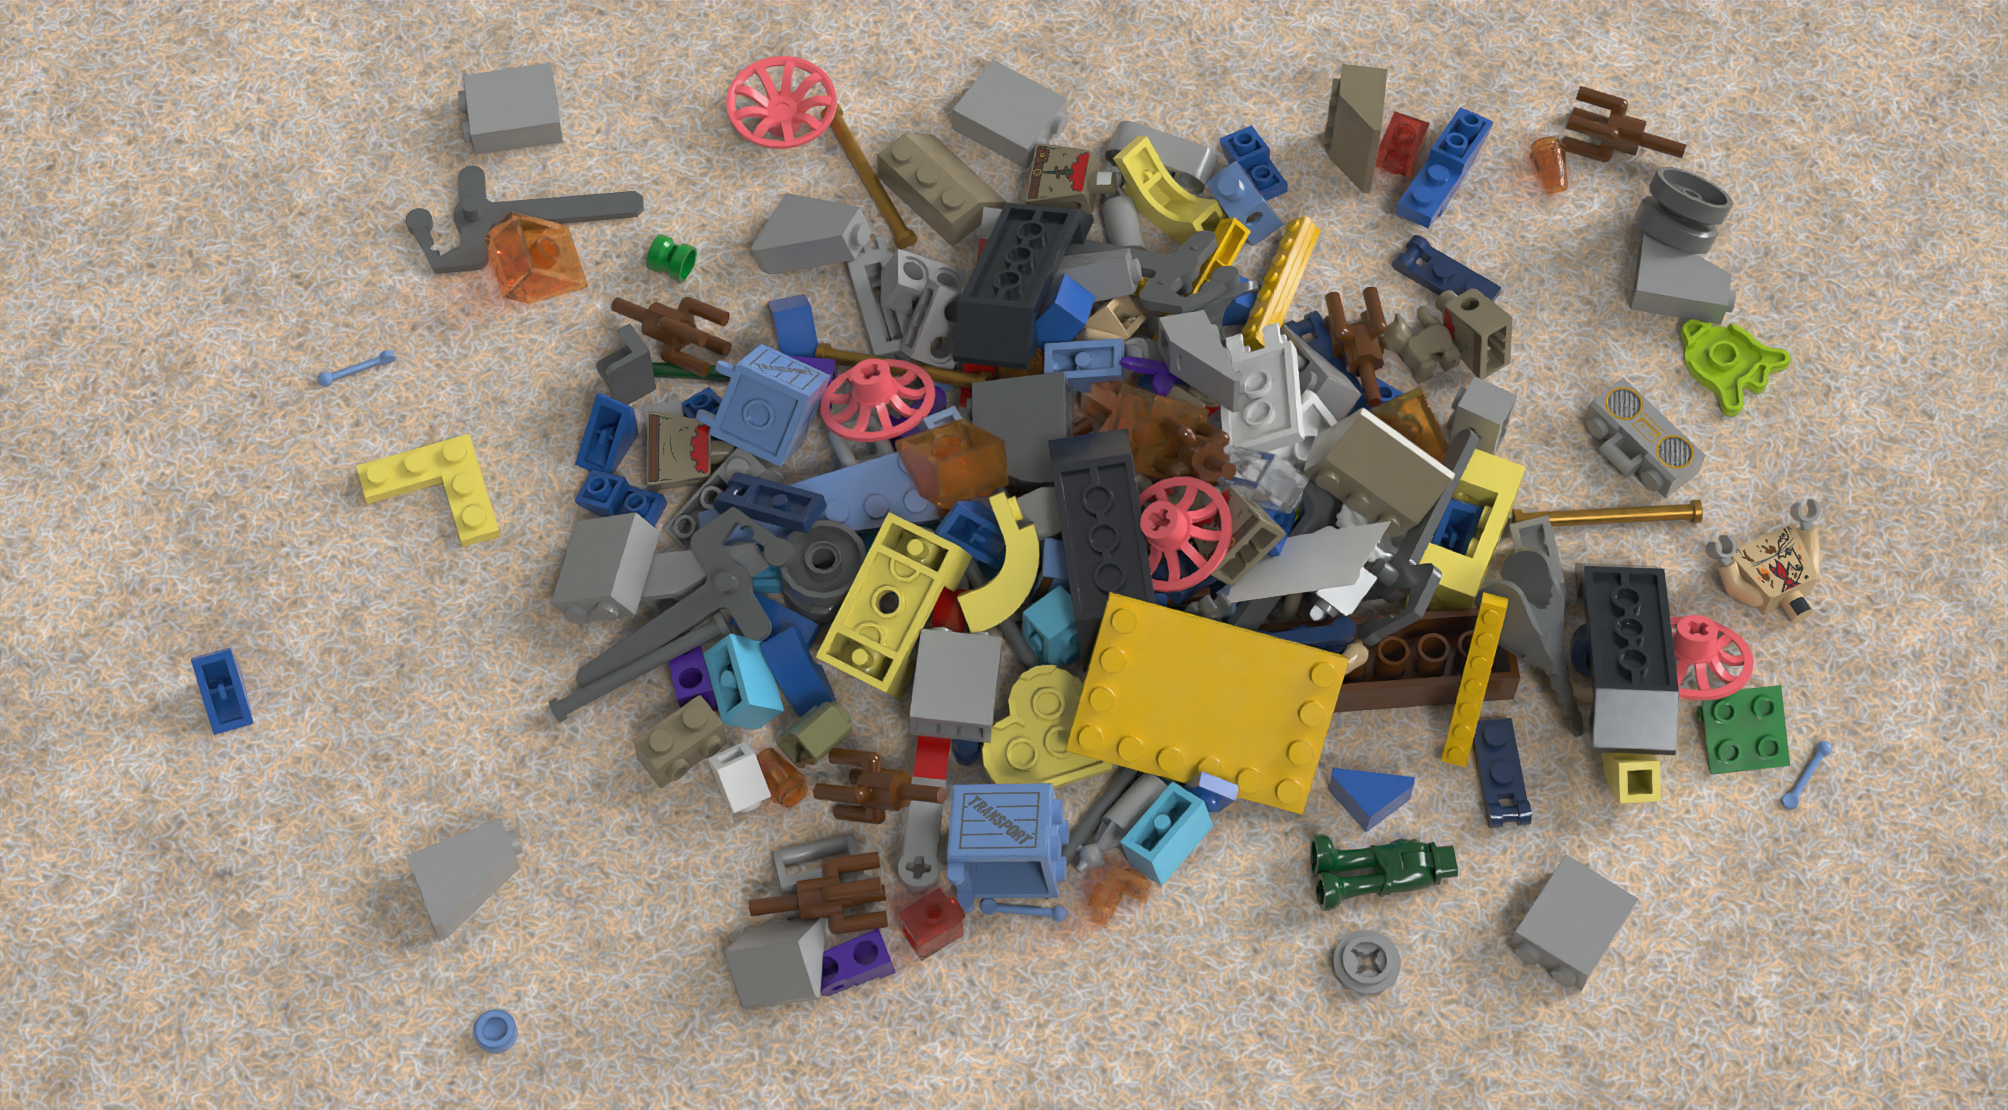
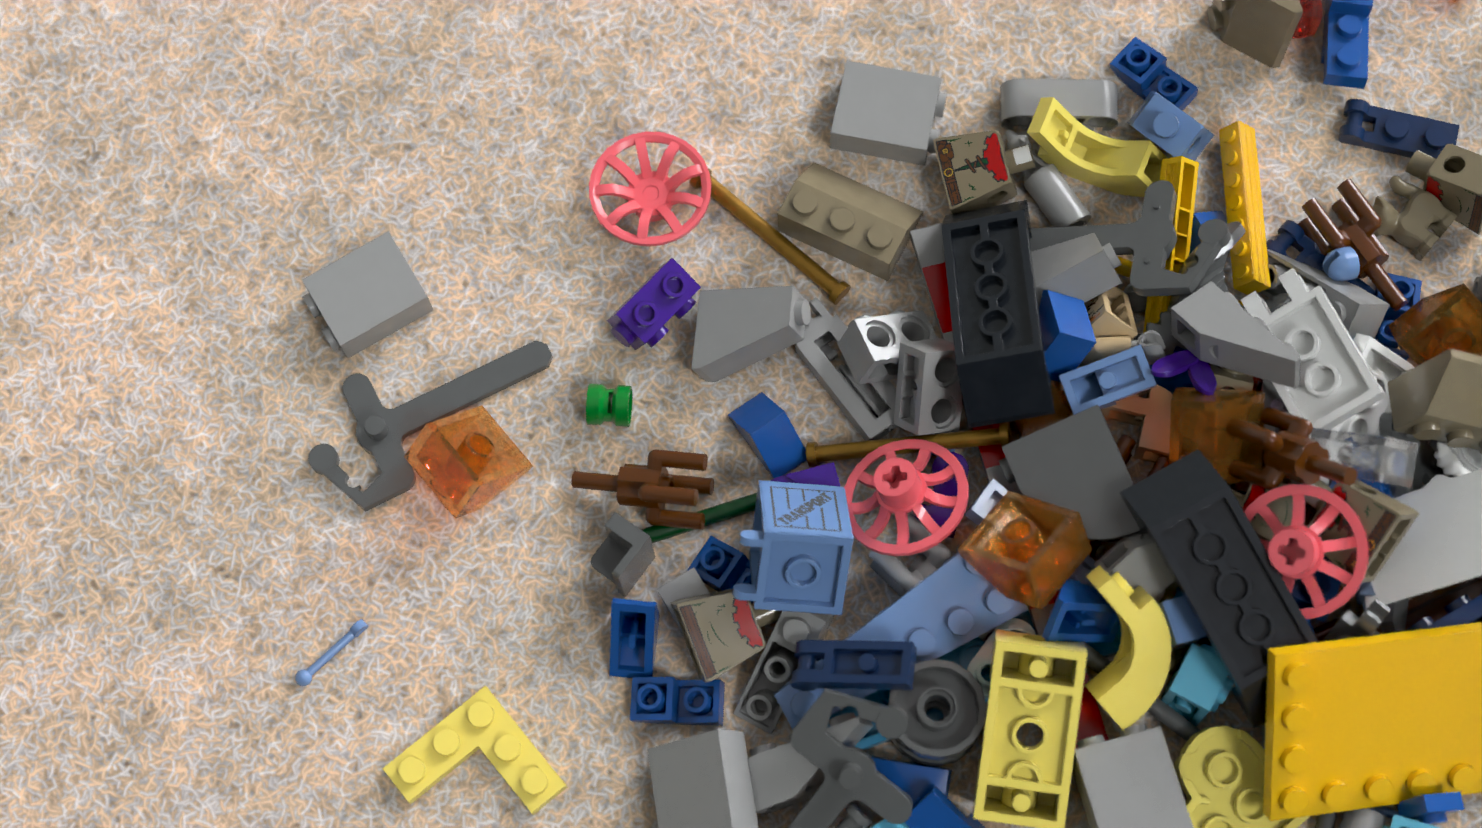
camera: 15 degrees left, 10 degrees up
(742, 193) = (652, 305): none -> dark purple brick
(1335, 351) = (1342, 264): none -> medium blue hinge

